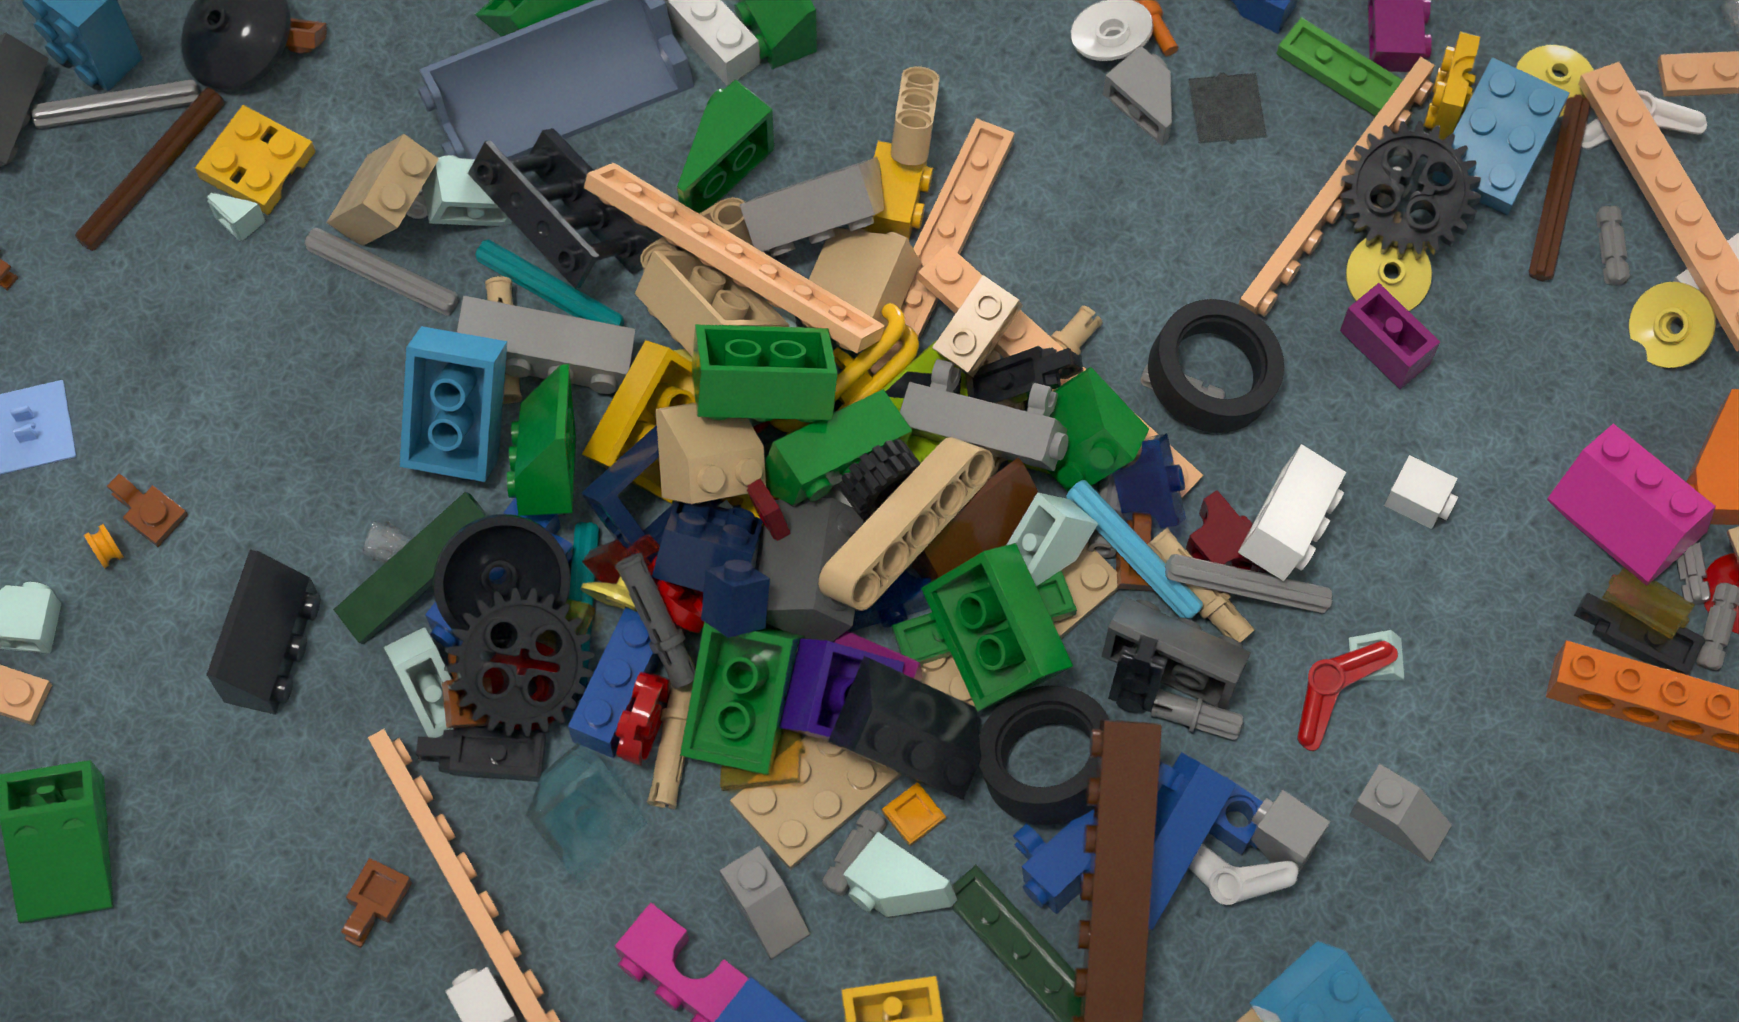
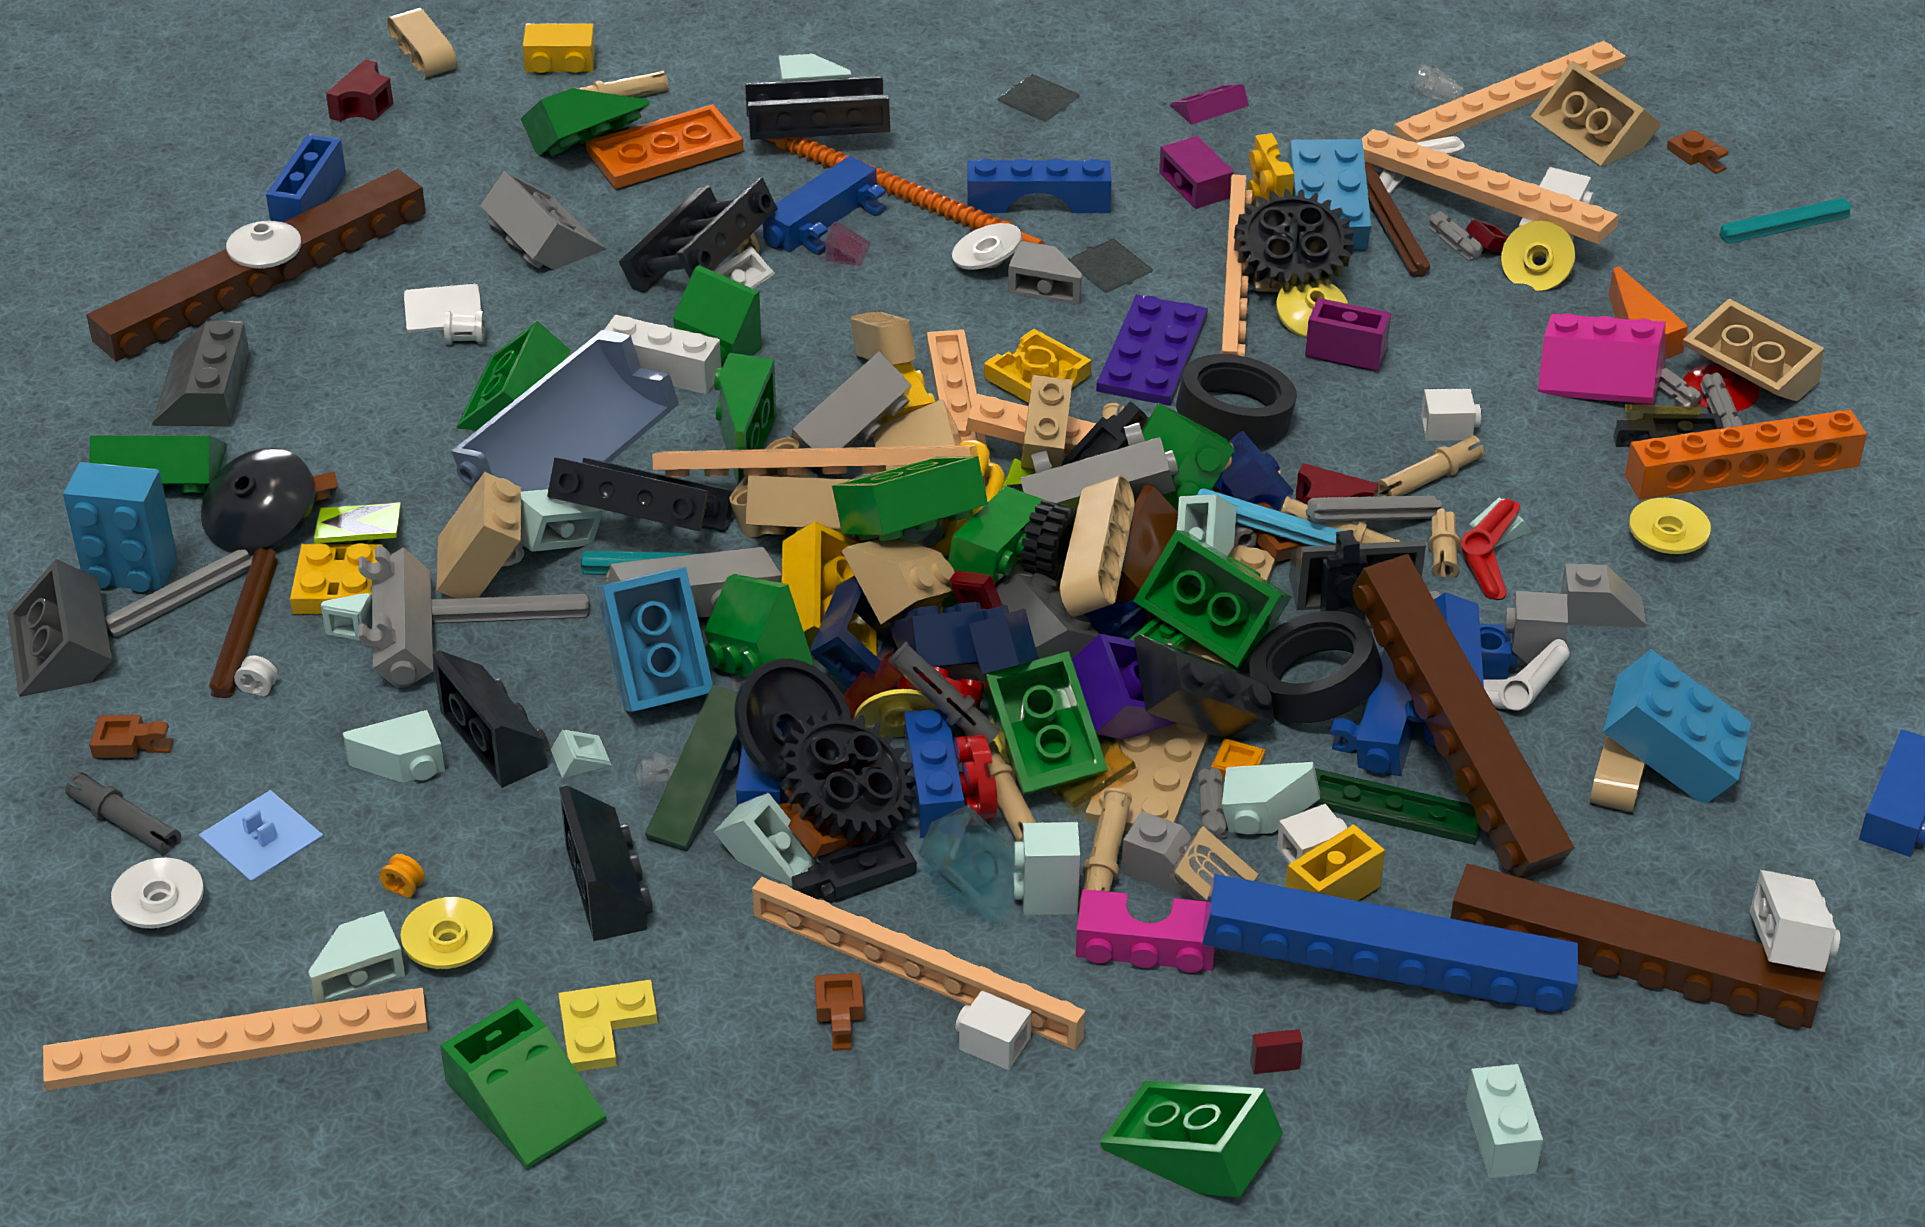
camera: 30 degrees left, 25 degrees down
(86, 619) = (446, 919): none -> light yellow dish
(118, 243) = (256, 675): none -> white bush
(149, 514) = (424, 842): dark orange plate -> none
(170, 787) = (595, 1012): none -> light yellow plate
(188, 397) = (397, 748): none -> light aqua slope
(272, 244) = (399, 616): none -> light grey brick
(274, 407) = (489, 720): none -> black slope
(307, 102) = (357, 523): none -> piece
(341, 481) = (578, 753): none -> light aqua slope
(635, 861) = (1049, 868): none -> light aqua brick
(708, 863) = (1102, 865): none -> tan pin
(789, 944) = (1204, 858): none -> piece
(910, 952) = (1307, 831): none -> white brick
(1053, 213) = (1036, 356): none -> yellow brick
(1190, 246) = (1152, 350): none -> dark purple plate
(1294, 514) = (1372, 452): white brick -> none
(1299, 654) = (1444, 543): none -> tan axle
(1338, 66) = (1174, 210): bright green plate -> none
(1372, 549) = (1442, 462): none -> tan pin
(1553, 740) = (1670, 525): none -> light yellow dish
(1644, 266) = (1487, 234): none -> dark red tile

